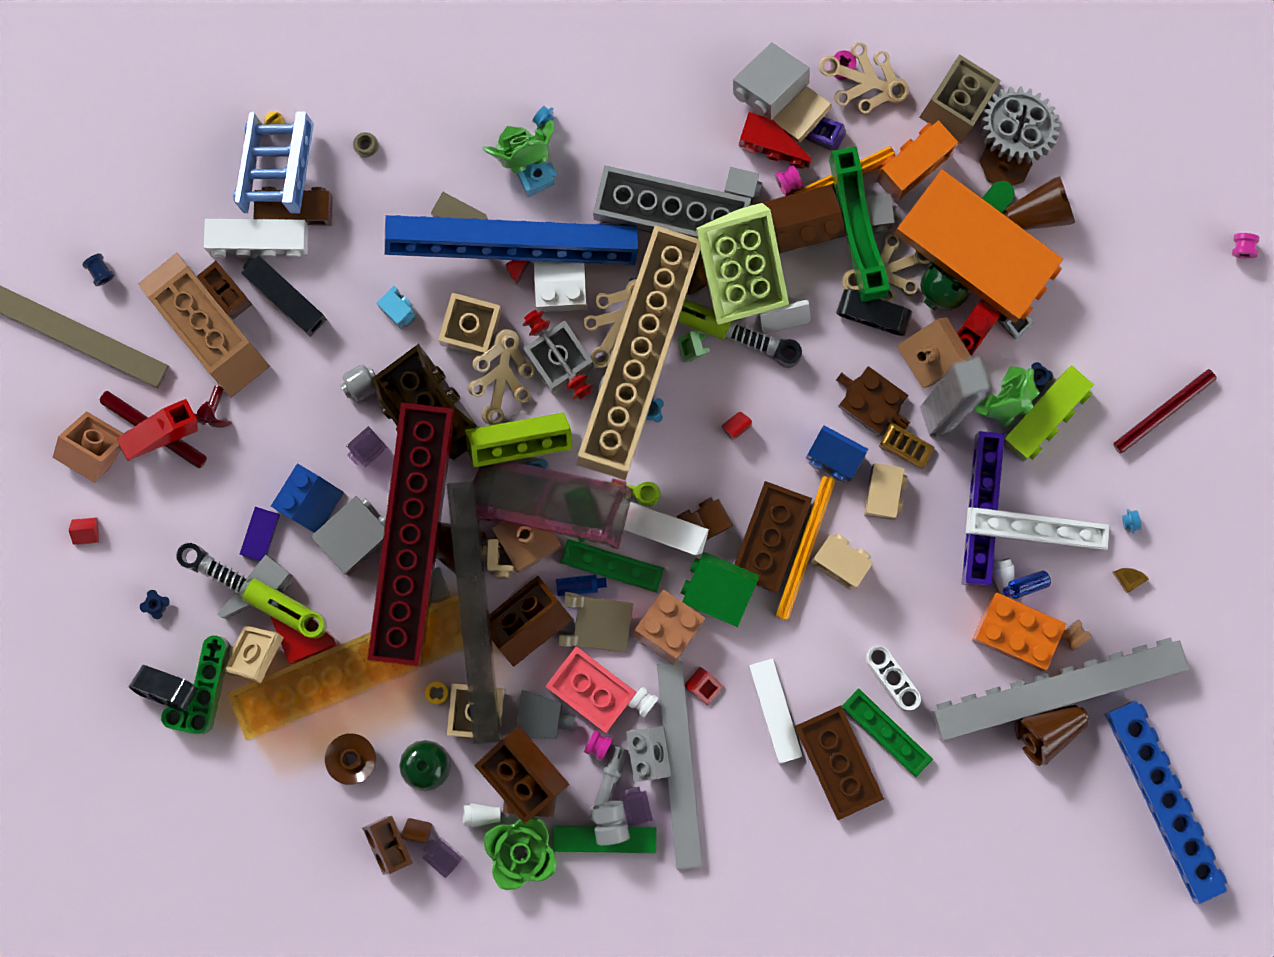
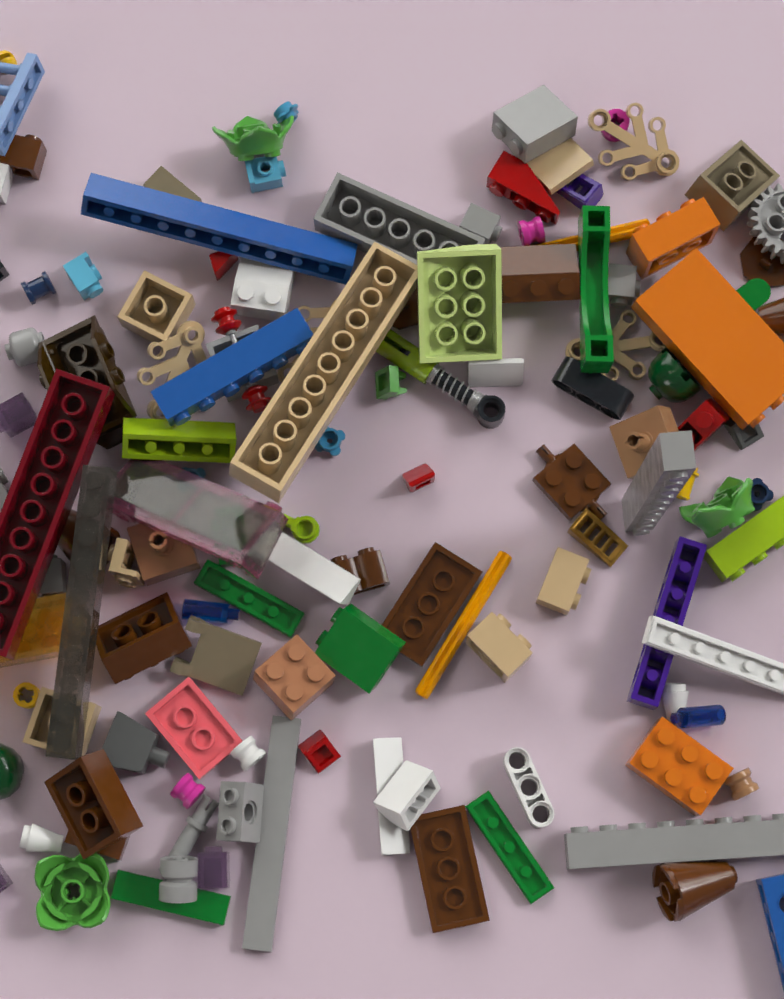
camera: 10 degrees right, 5 degrees down
(357, 326) = (38, 287): none -> dark blue bush
(365, 137) = (94, 97): dark tan plate -> none
(554, 365) = (232, 368): none -> blue brick
(790, 707) = (407, 794): none -> white brick
(836, 454) = (518, 529): blue slope -> none

